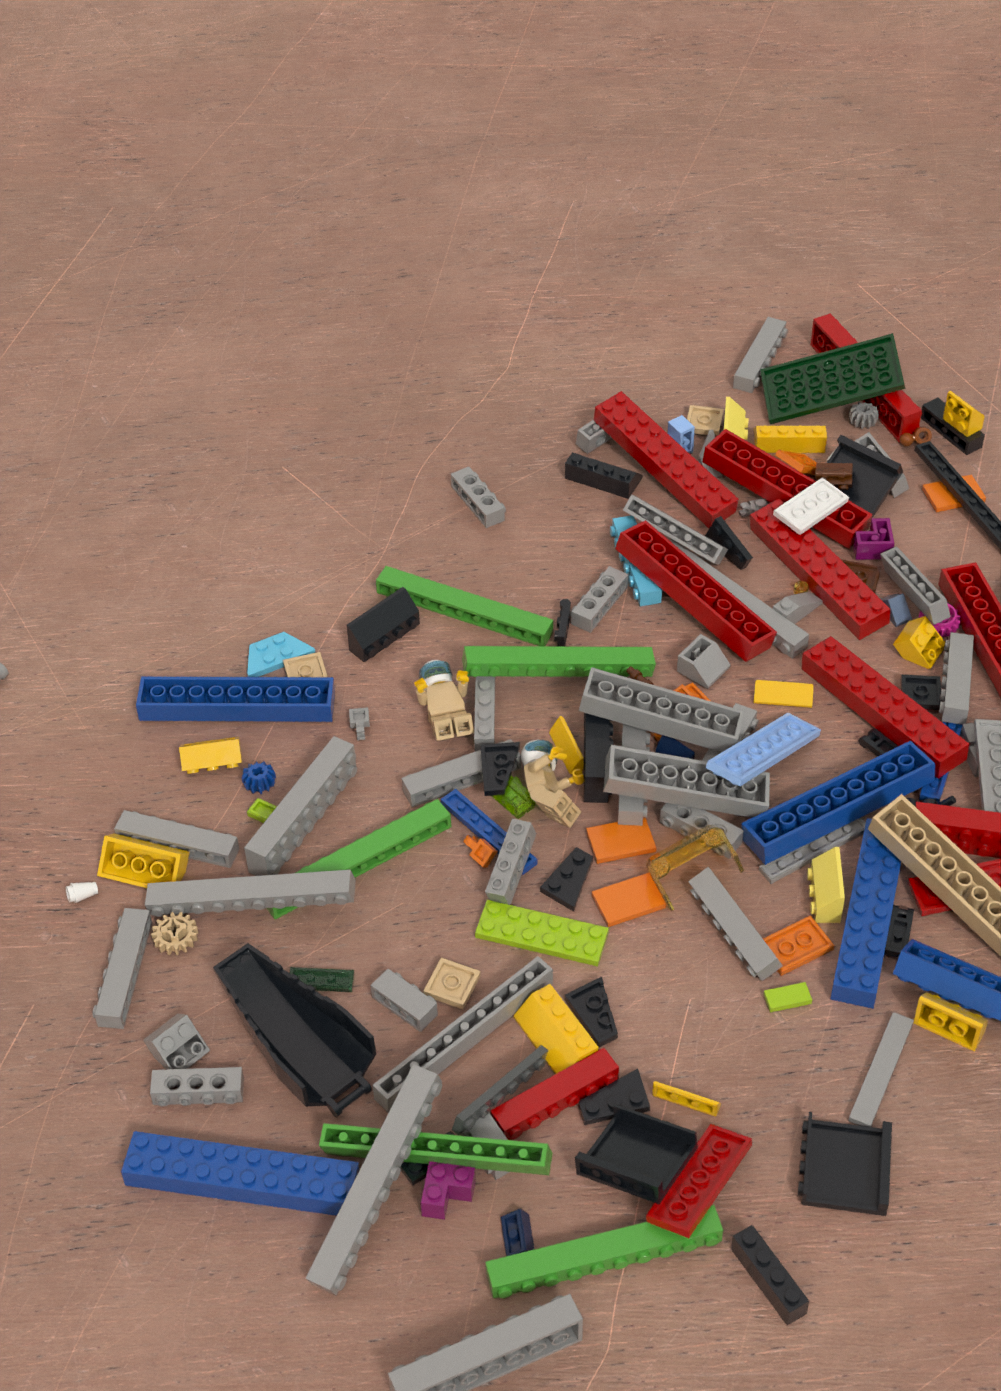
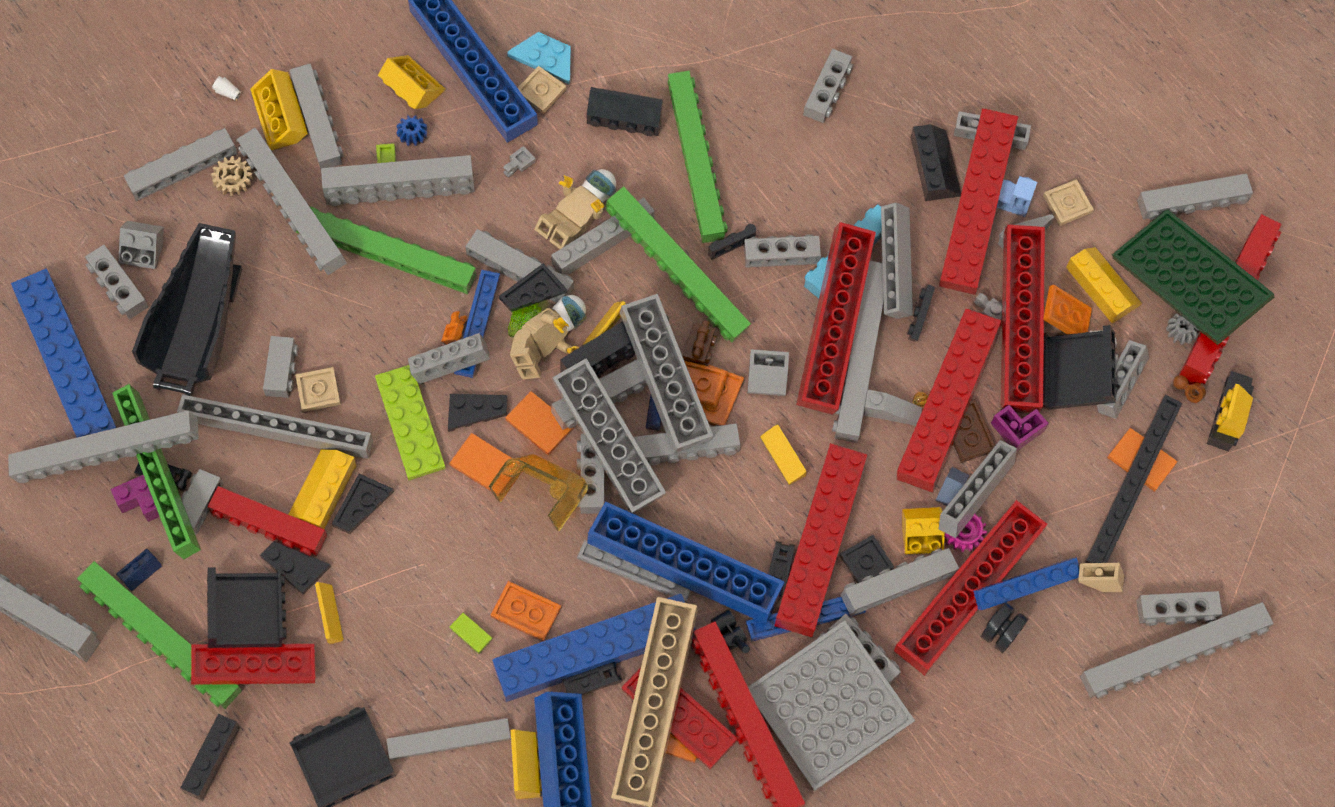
camera: 50 degrees right, 20 degrees up
(326, 979) = (263, 299): clear green tile -> none
(495, 1095) = (228, 481): dark grey plate -> none
(735, 419) = (1071, 232): light yellow slope -> none
(735, 924) = (509, 554): light grey brick -> none
(763, 749) = (690, 473): light blue plate -> none
(811, 506) = (1006, 351): white tile -> none
(826, 887) = (592, 602): light yellow slope -> none
(837, 474) = (1066, 348): reddish brown brick -> none

